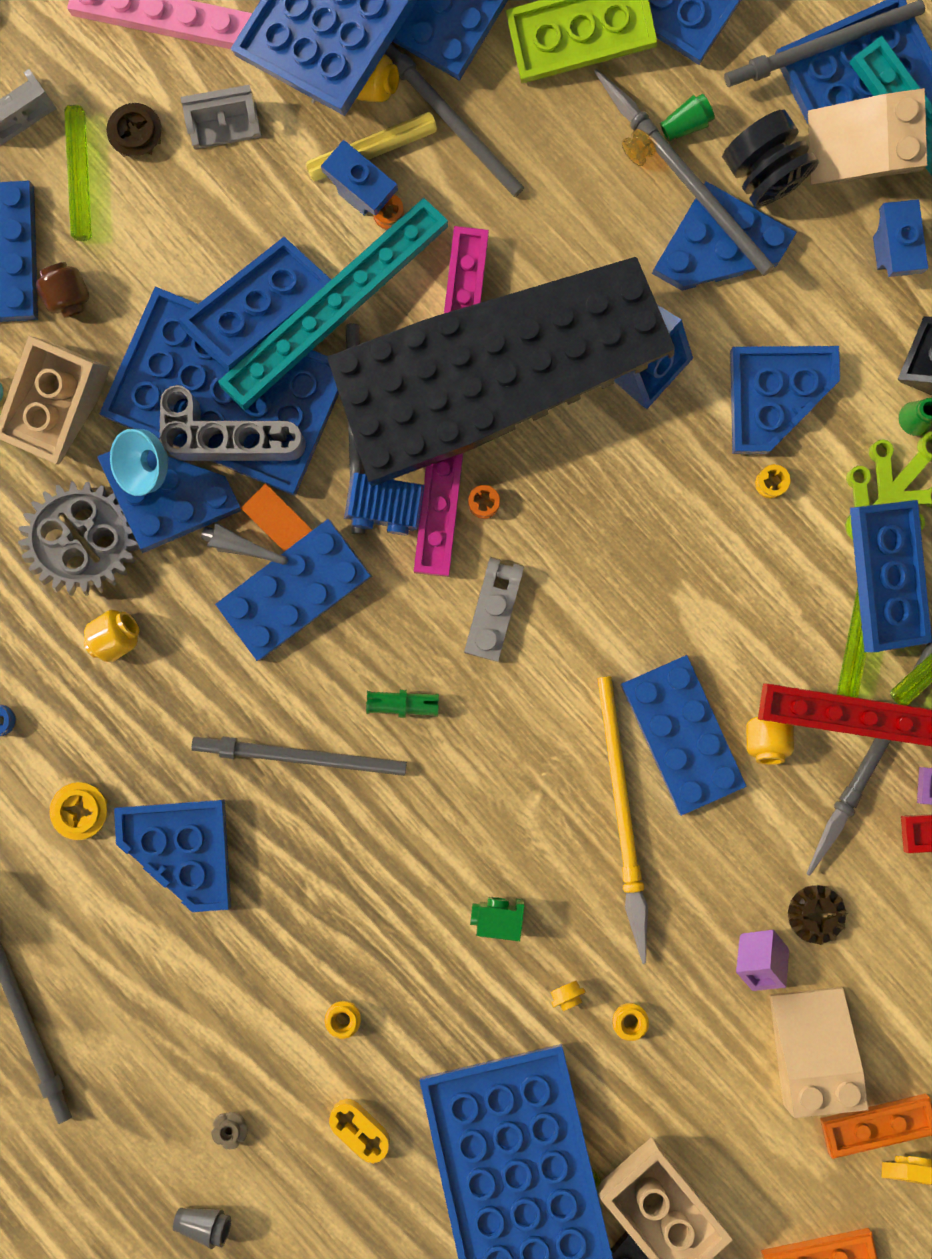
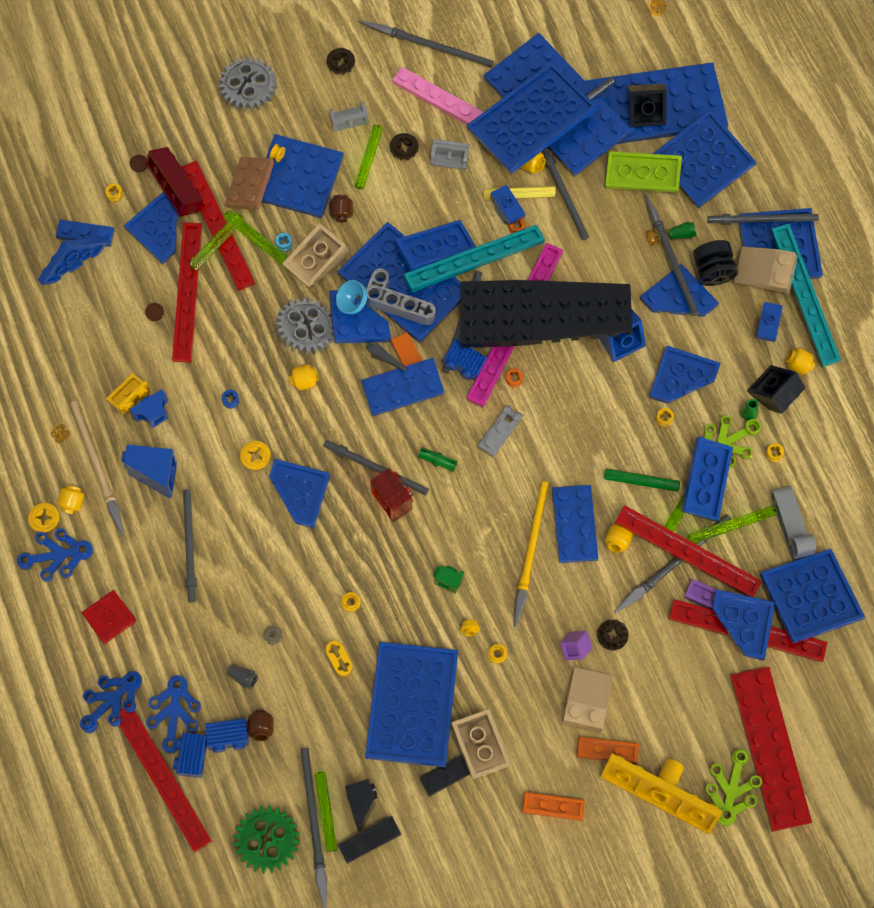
camera: 10 degrees right, 15 degrees down
(345, 806) = (392, 494): none -> clear red brick
(772, 612) = (642, 480): none -> green axle

